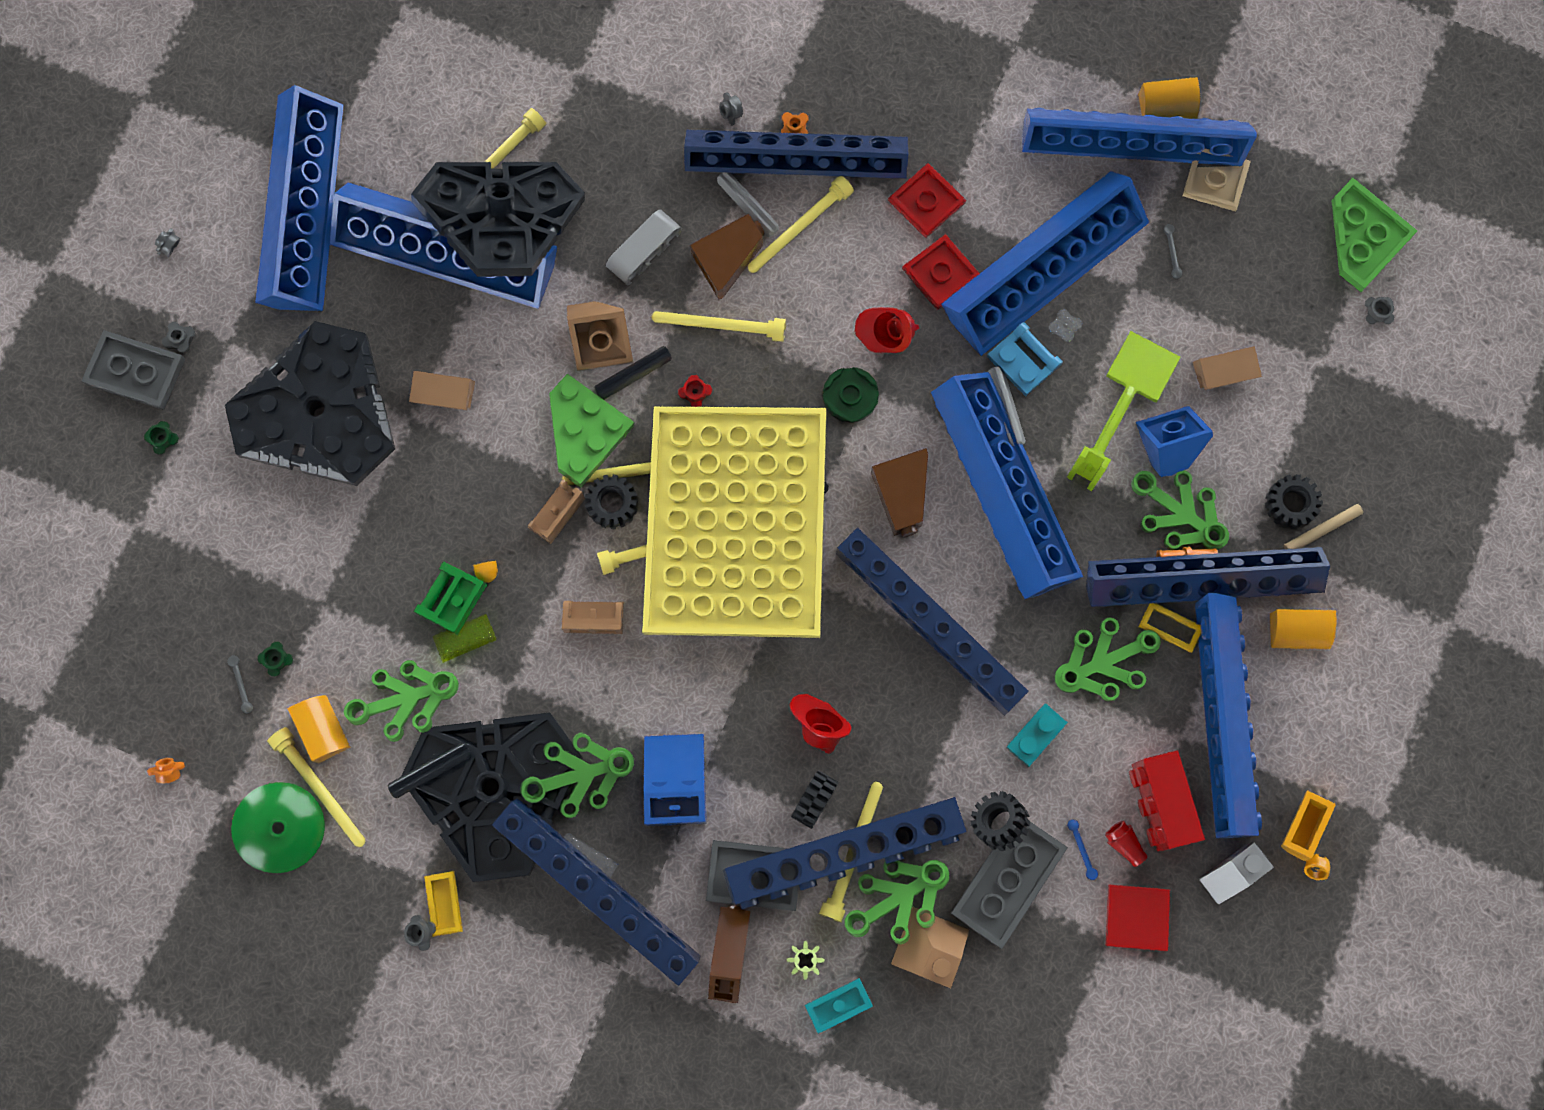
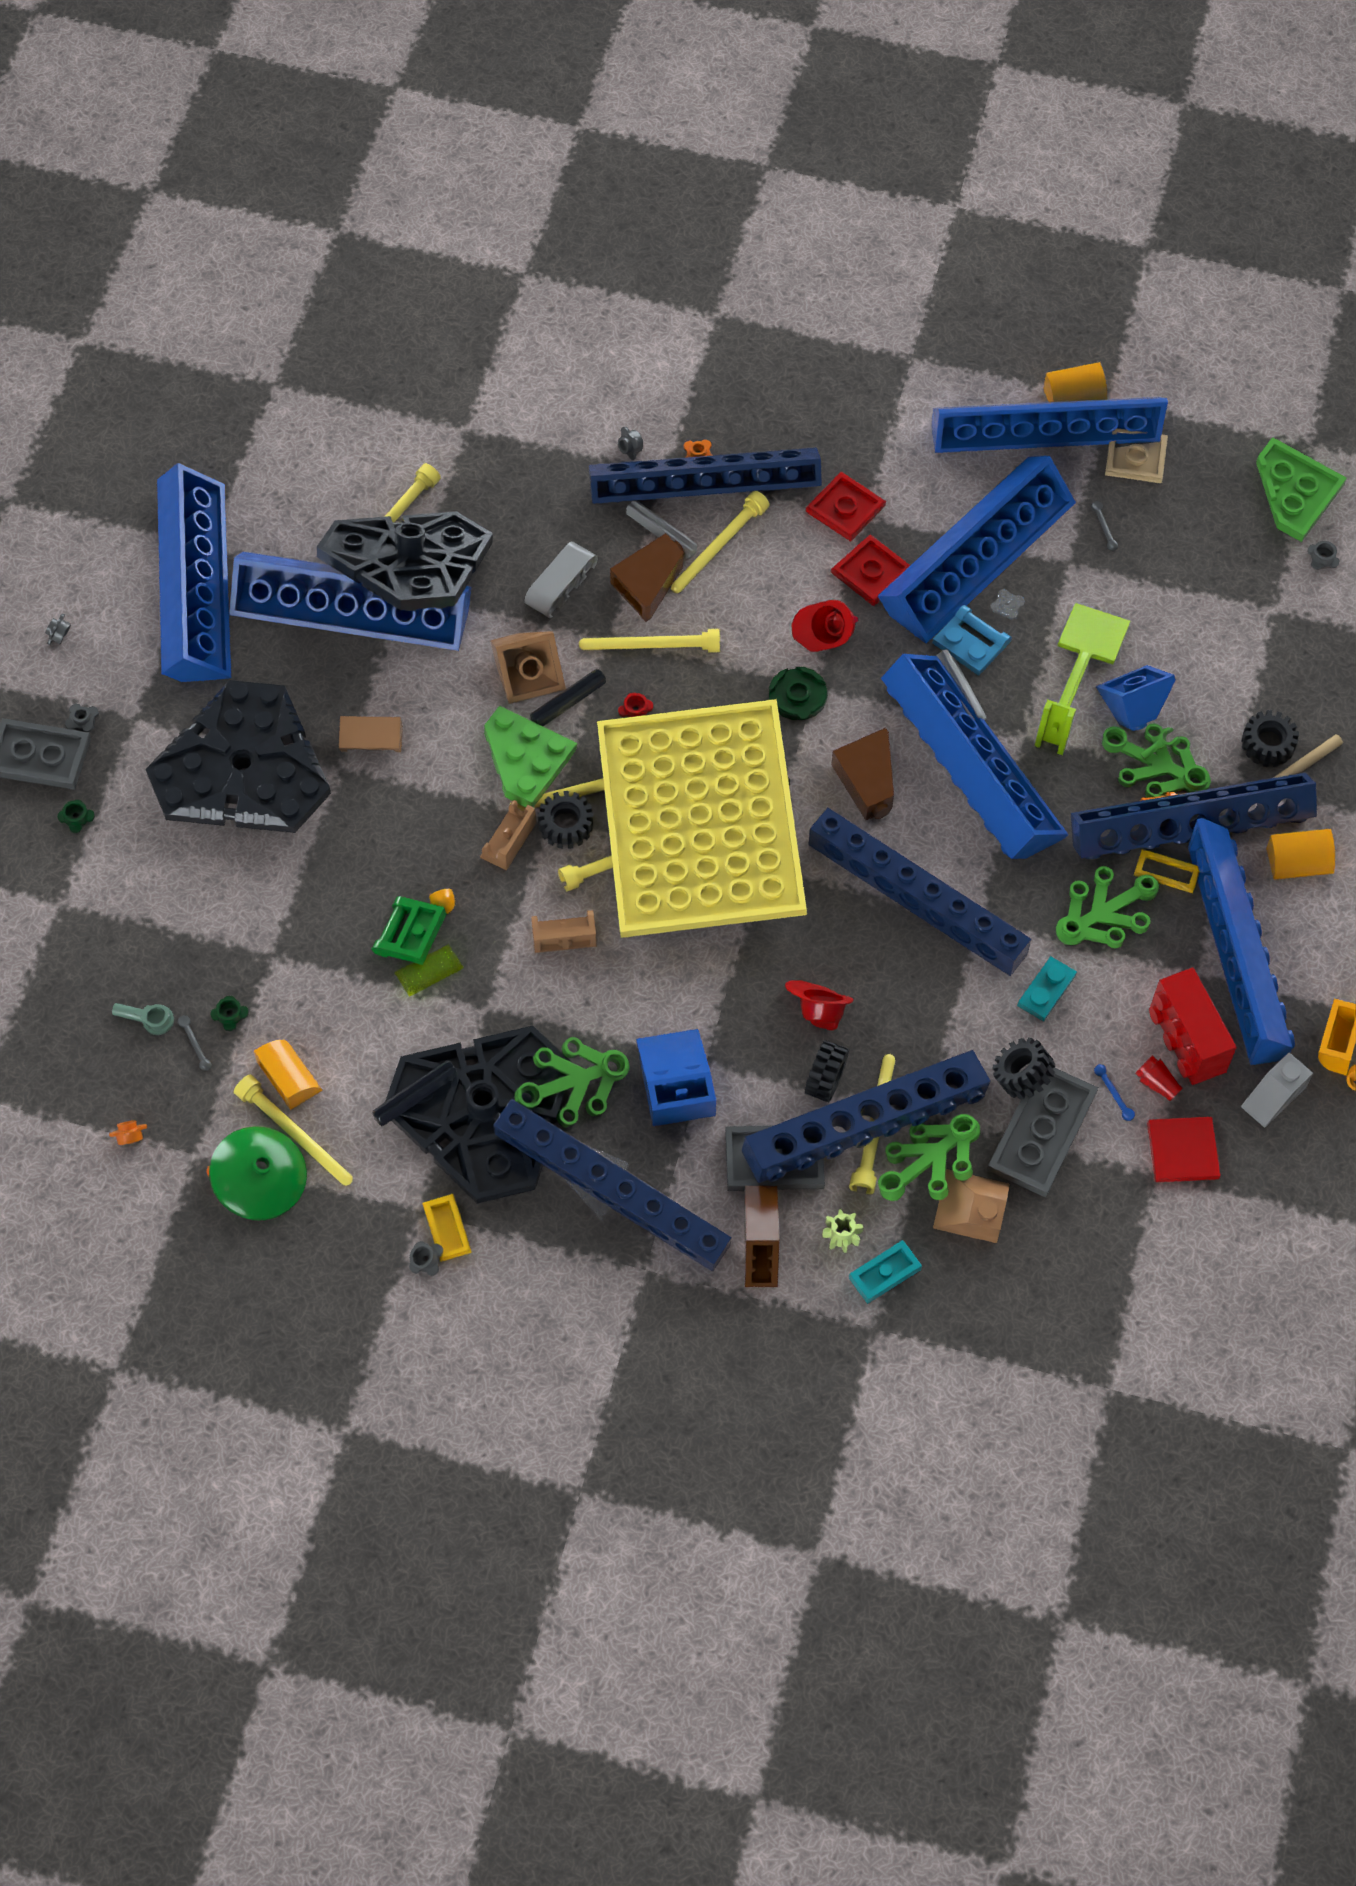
camera: 10 degrees left, 15 degrees down
(206, 657) = (155, 1018): none -> sand green plate
(406, 698) = (409, 1015): bright green plant -> none
(1186, 496) = (1161, 743): none -> bright green hand
(1227, 368) = (1179, 622): medium nougat hinge -> none

